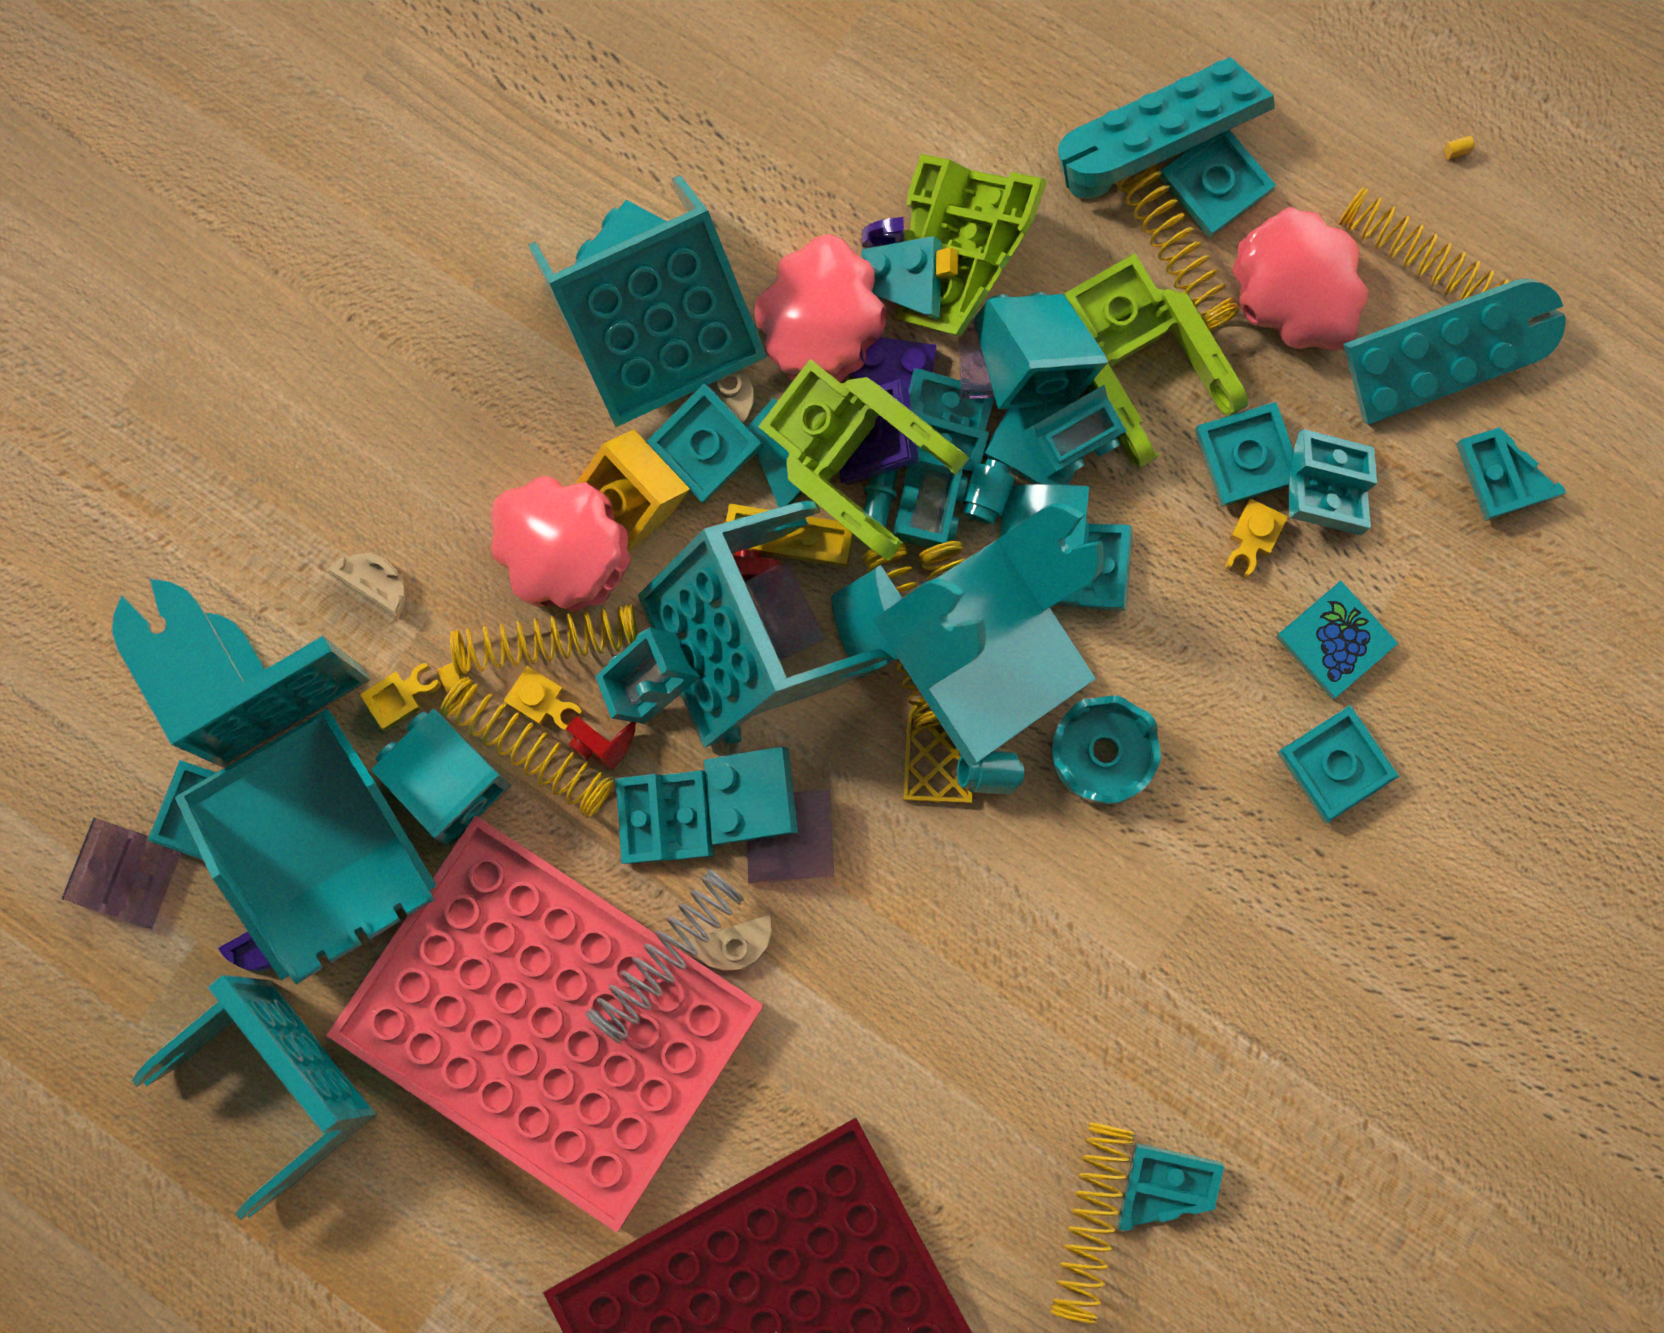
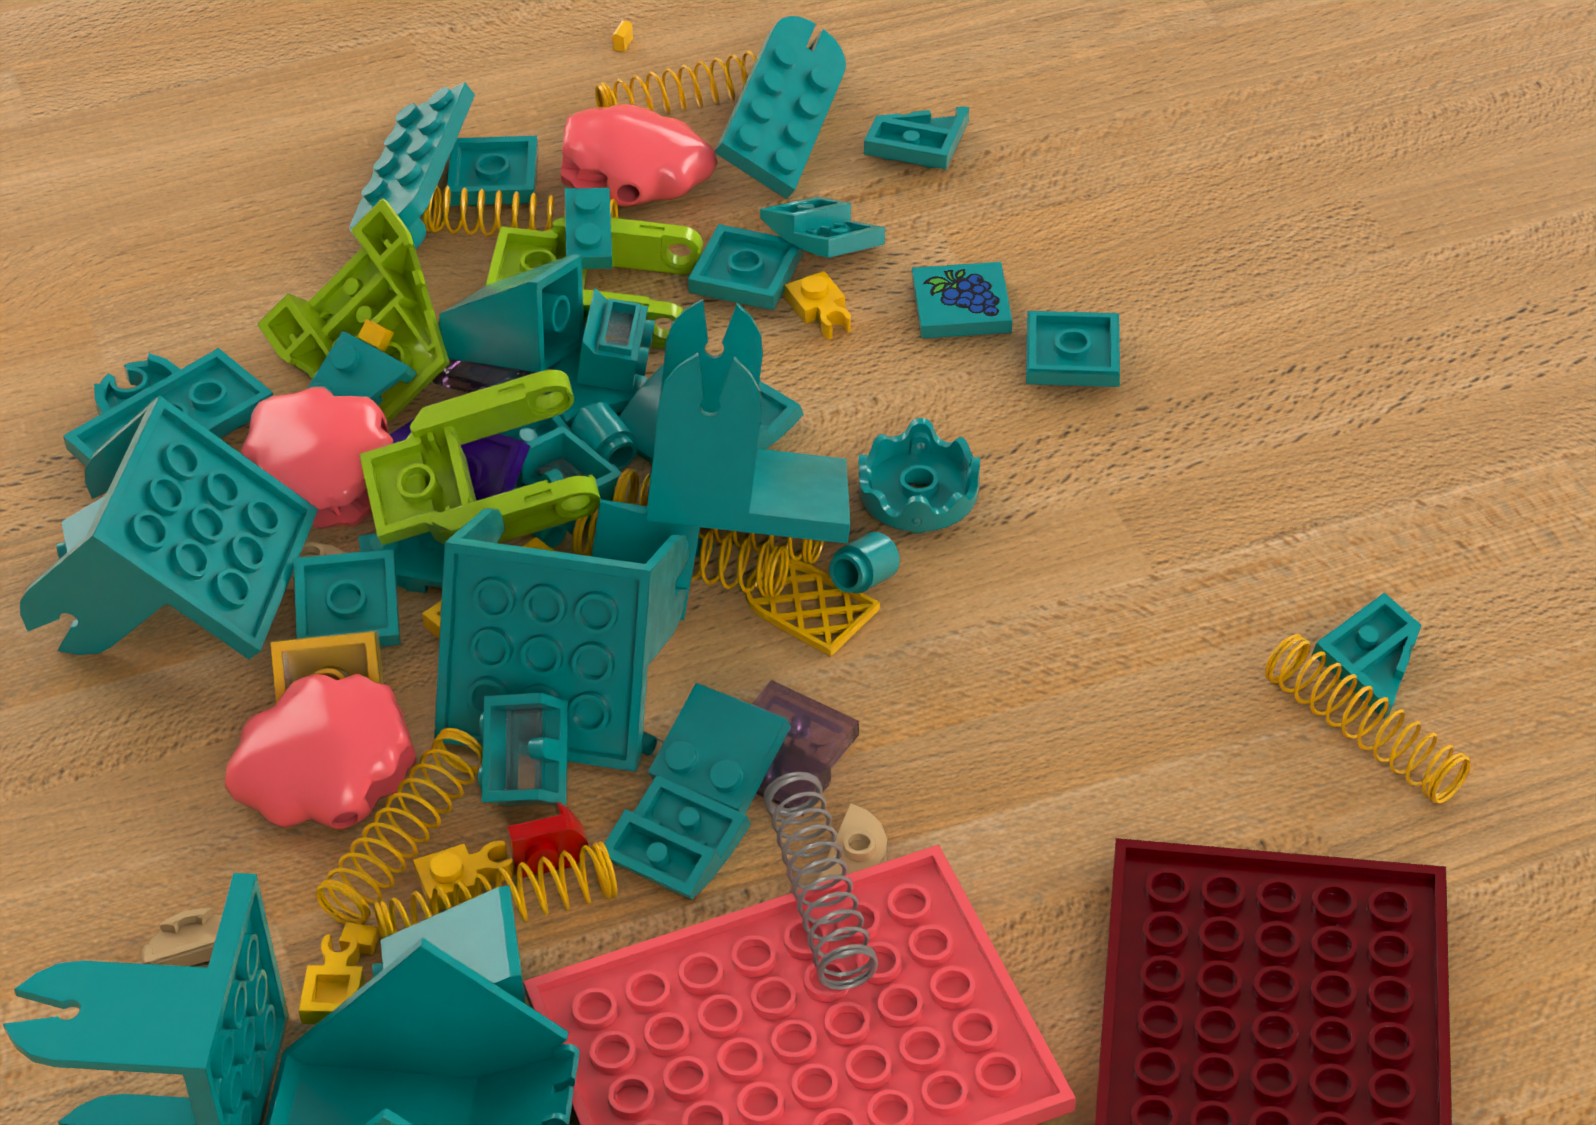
camera: 55 degrees left, 35 degrees down
(788, 168) = (209, 391): none -> teal plate
(883, 232) = (298, 374): dark purple tile -> none
(1175, 322) = (589, 226): none -> teal plate

